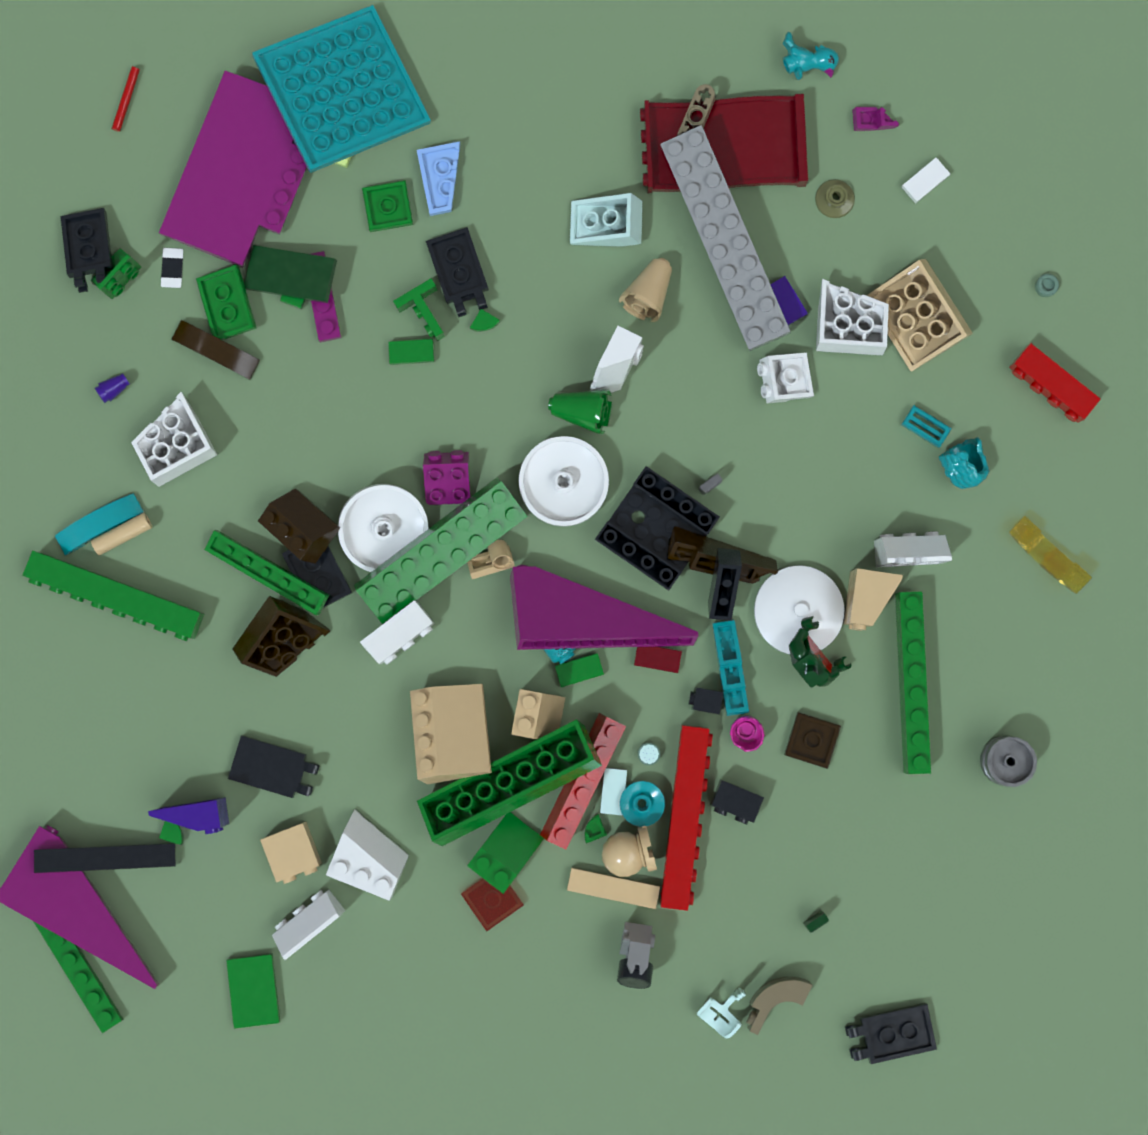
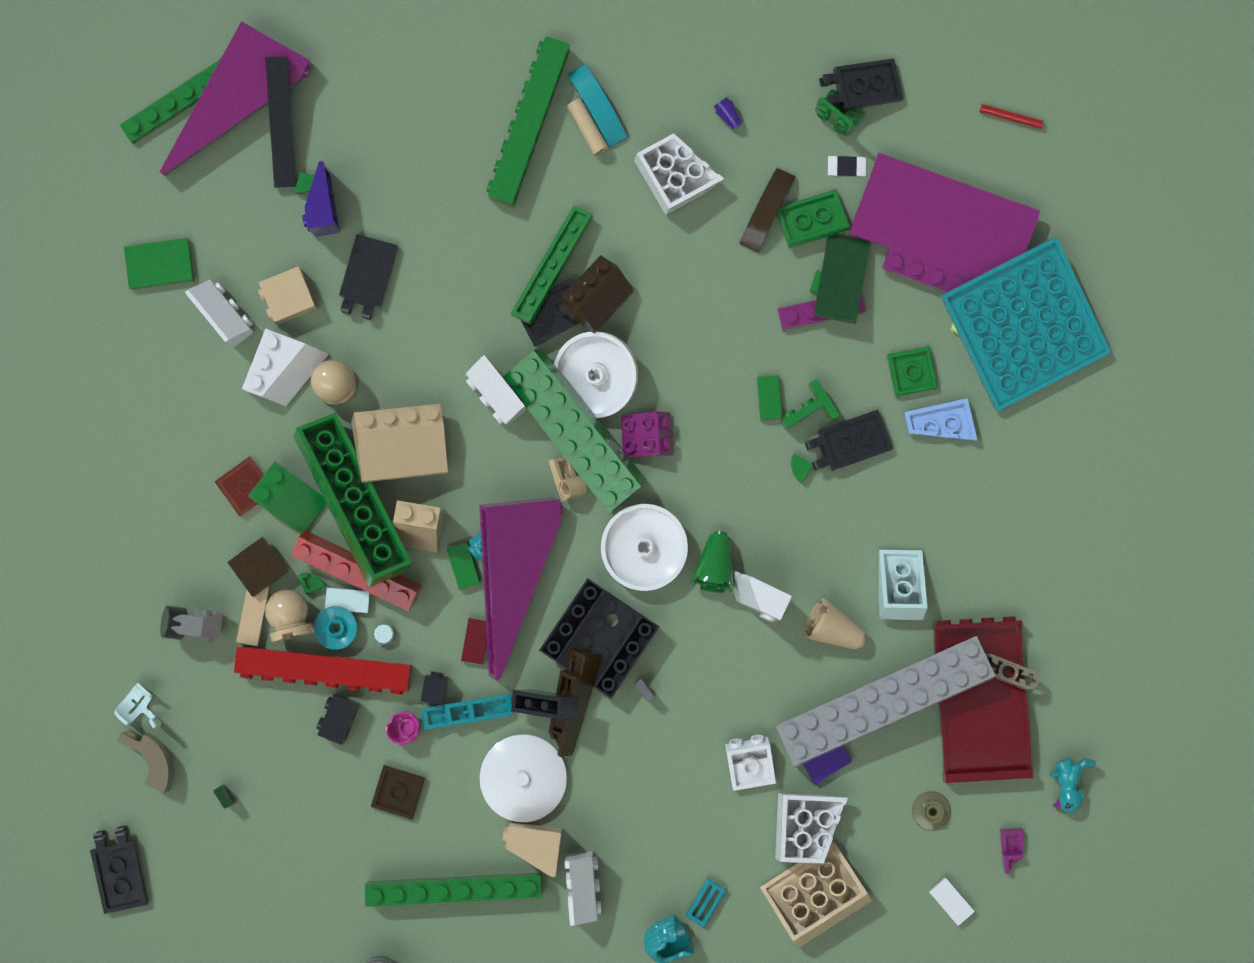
camera: 90 degrees right, 0 degrees up
(277, 637) = (490, 277): dark brown wedge -> none
(384, 803) = (333, 382): none -> tan tile
(577, 885) = (257, 566): none -> dark brown tile
(810, 660) = (473, 788): dark green torso -> none

